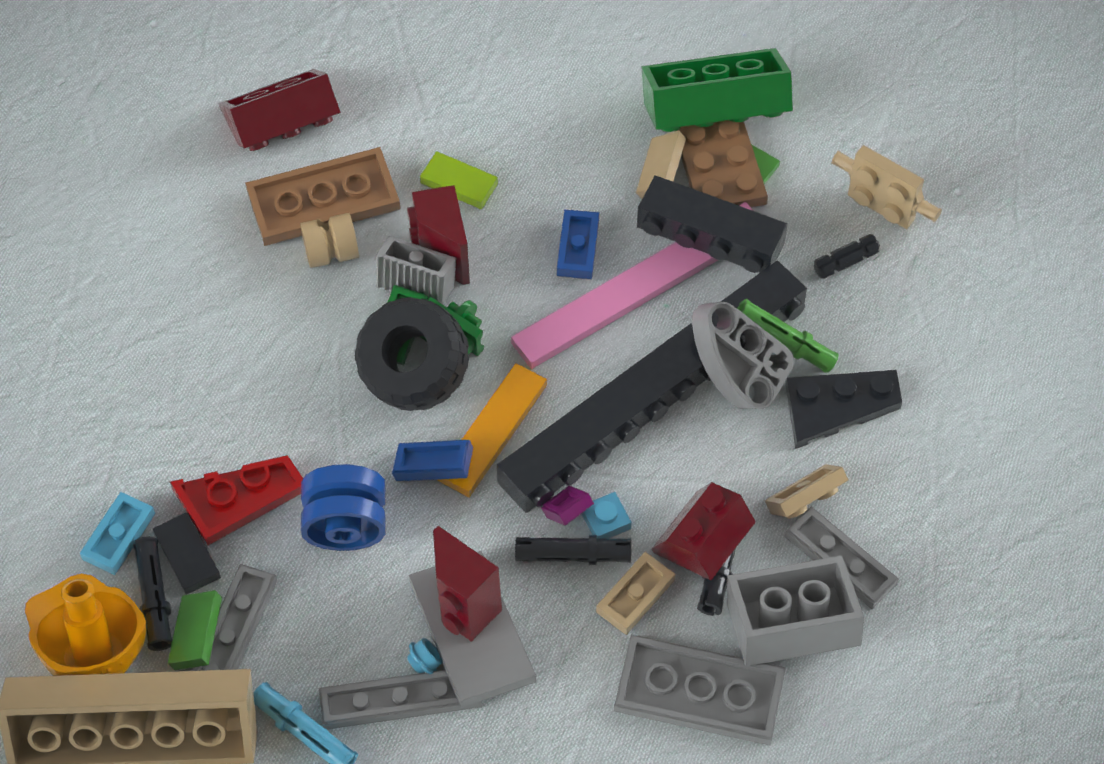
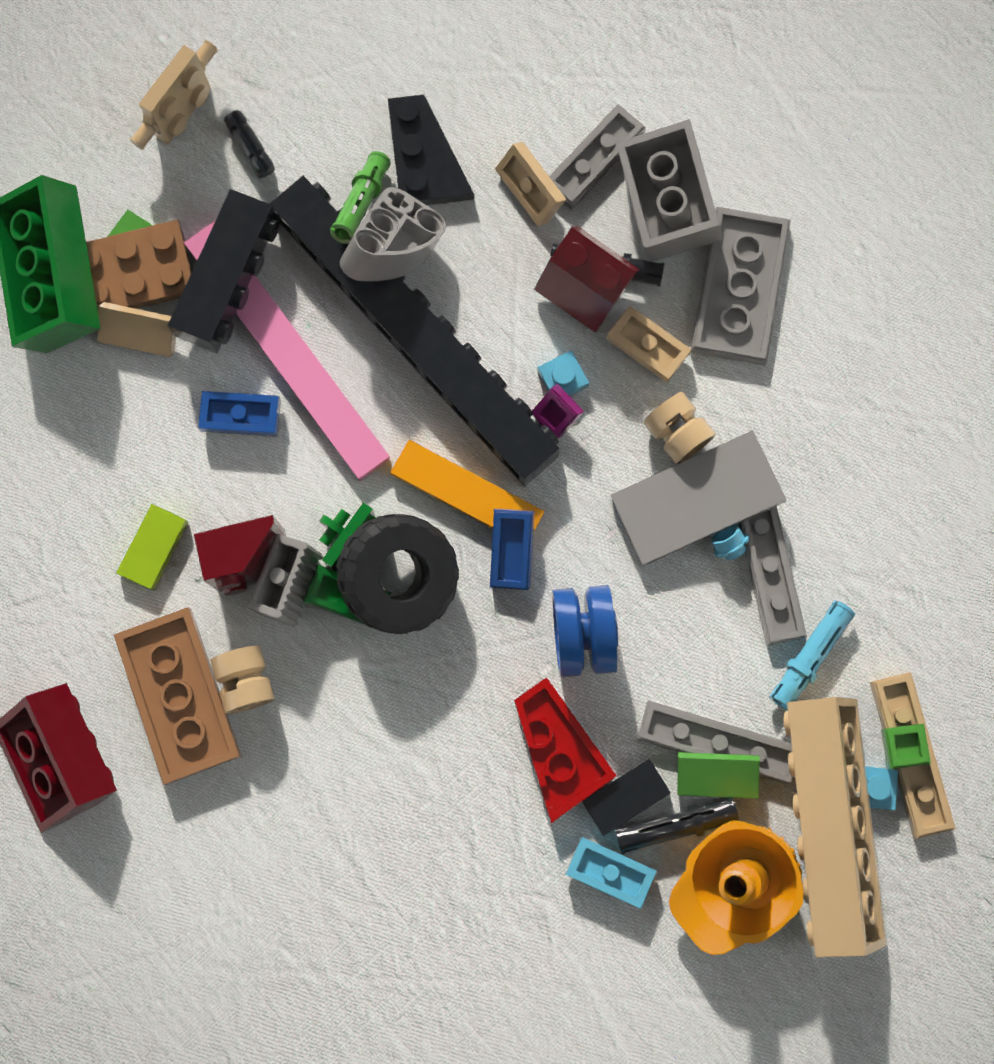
camera: 90 degrees left, 20 degrees up
(465, 585) = (677, 499): dark red slope -> none
(540, 614) = (688, 438): none -> tan wheel
(573, 549) = (604, 404): black pin -> none

